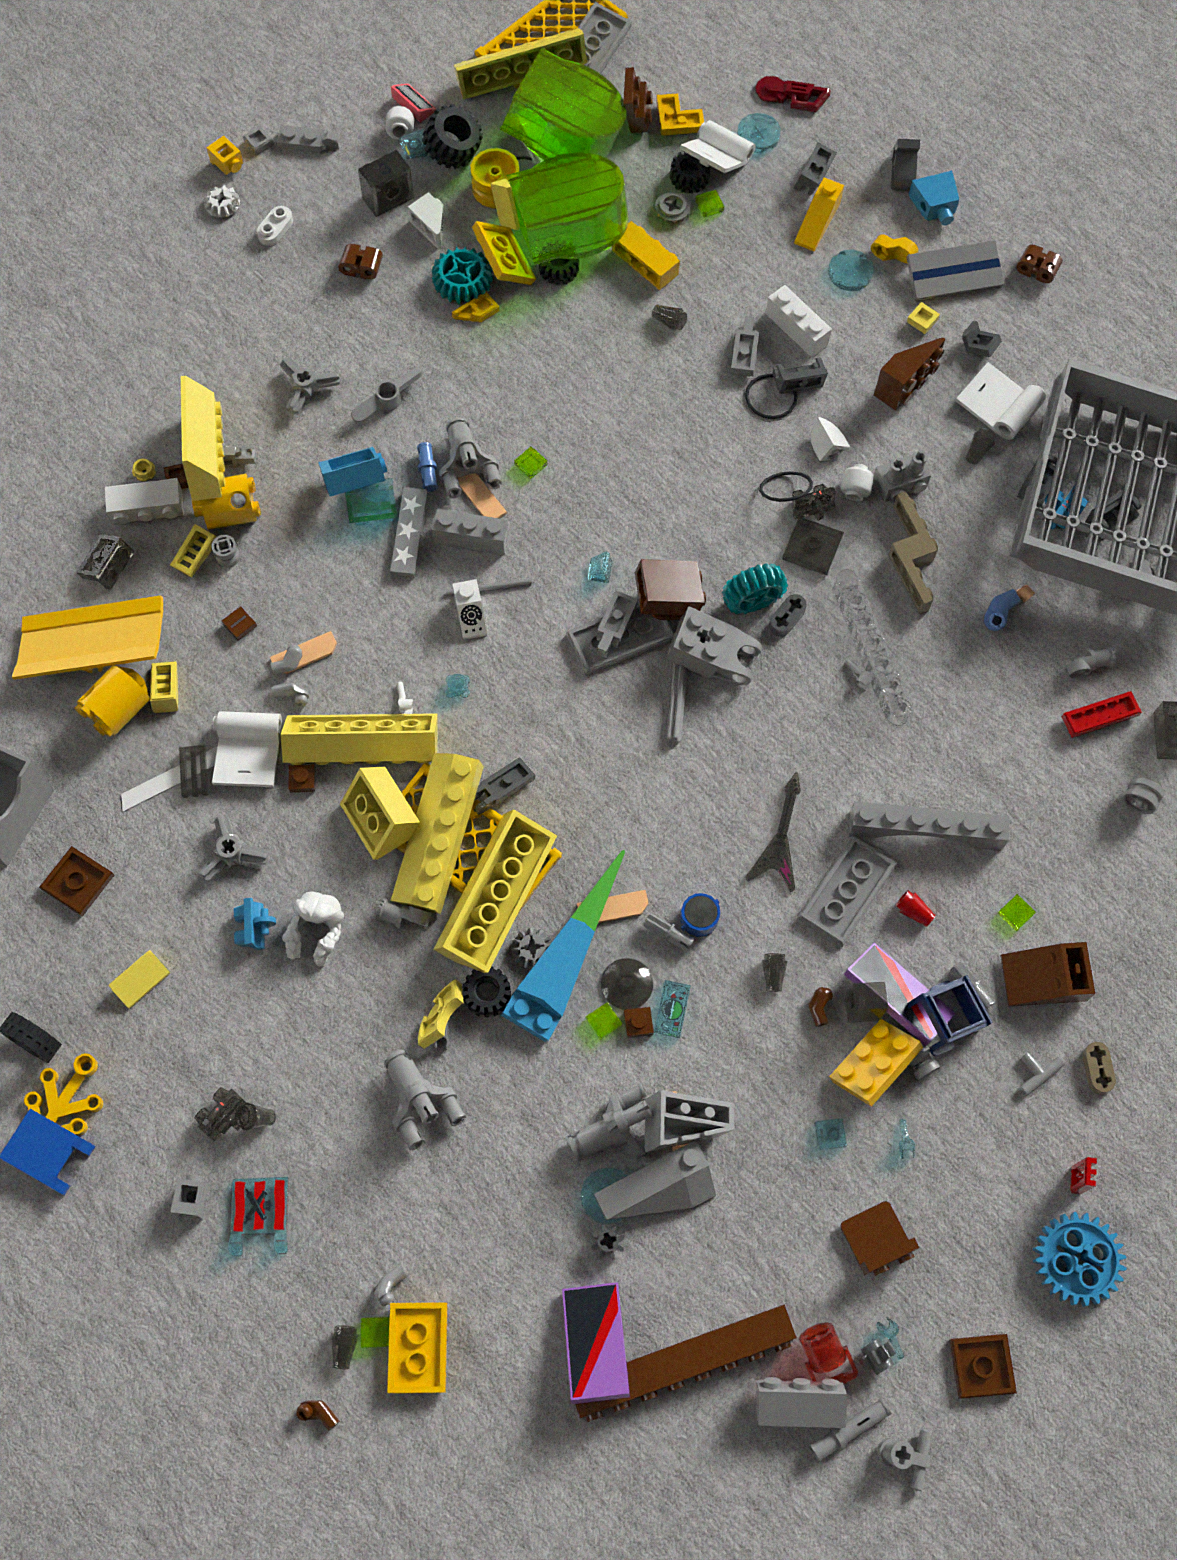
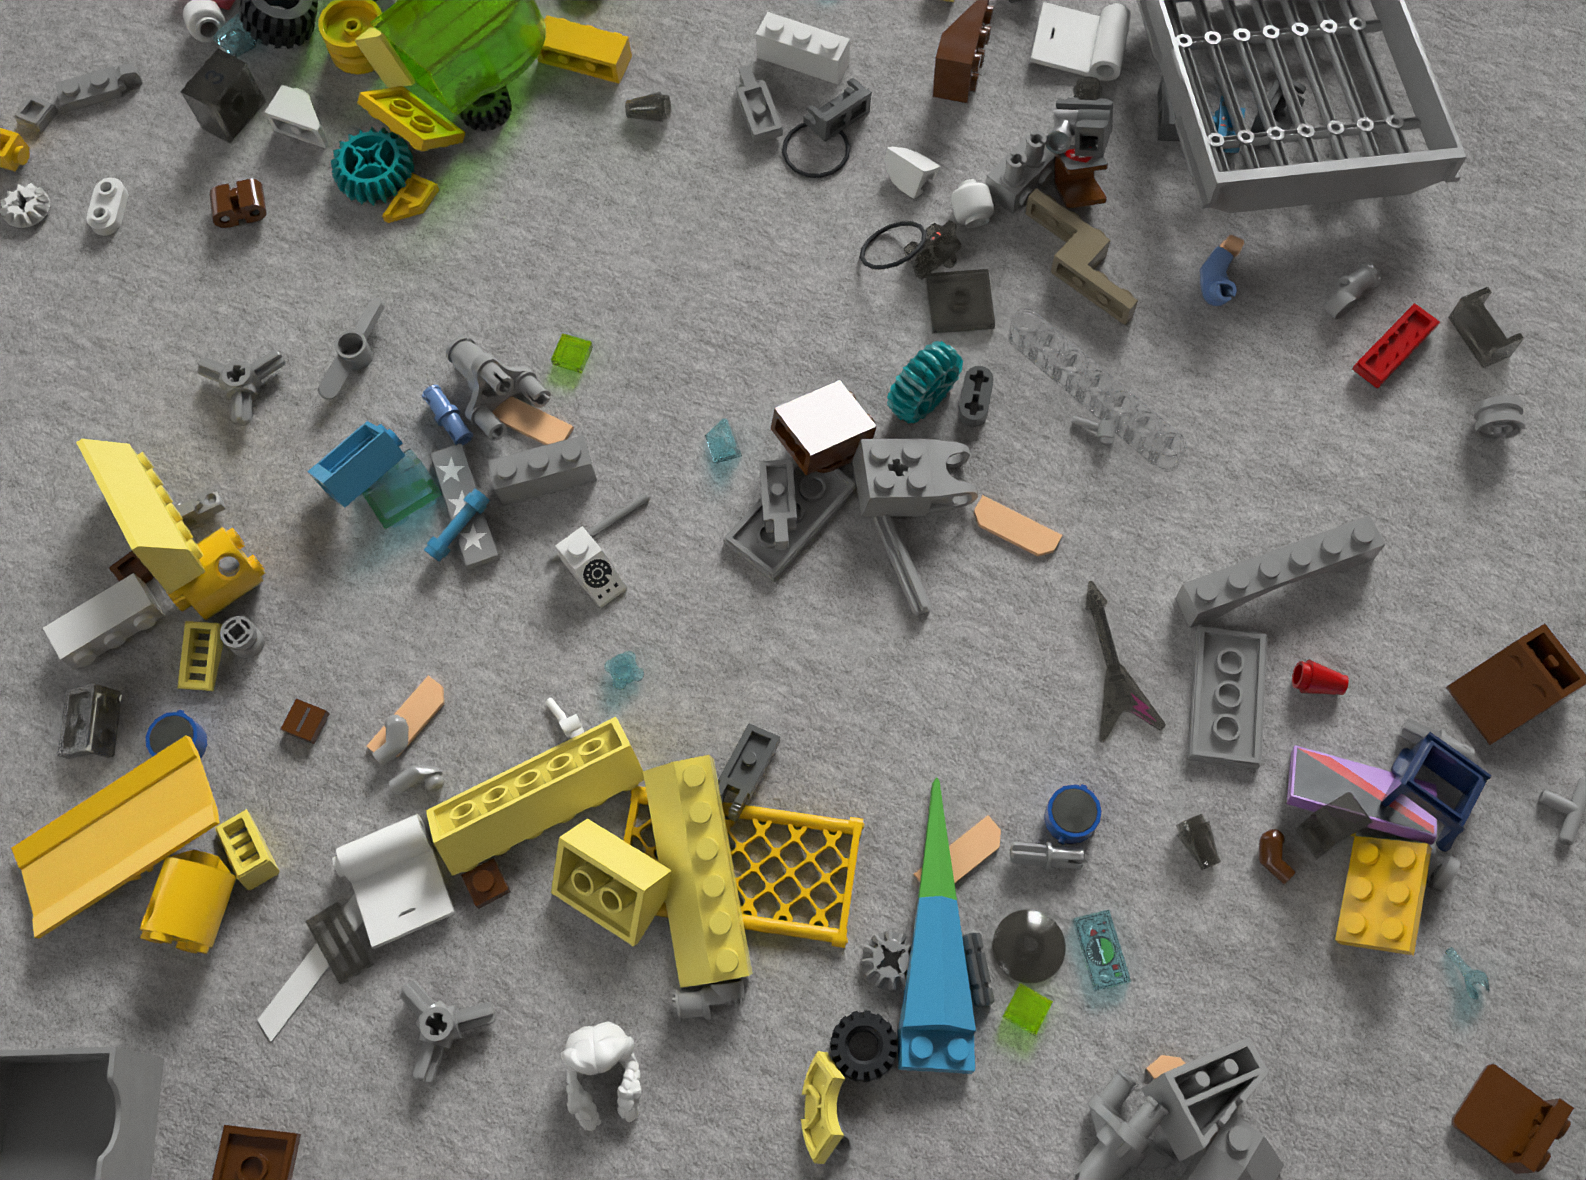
camera: 20 degrees left, 0 degrees up
(141, 465) = (79, 577): light yellow plate -> none
(154, 587) = (172, 727): none -> piece
(255, 922) = (522, 1107): dark azure hips -> none
(416, 532) = (438, 546): none -> dark azure bar
(495, 892) = (811, 914): light yellow slope -> none
(585, 981) = (978, 970): none -> dark grey axle
(638, 1022) = (1070, 989): reddish brown plate -> none
(767, 715) = (1015, 527): none -> light nougat piece
(830, 1134) = (1376, 1012): clear light blue tile -> none
(942, 495) = (1076, 179): none -> reddish brown piece
(963, 462) = (1086, 120): none -> dark grey hips
(1016, 912) = (1434, 626): clear neon green tile -> none

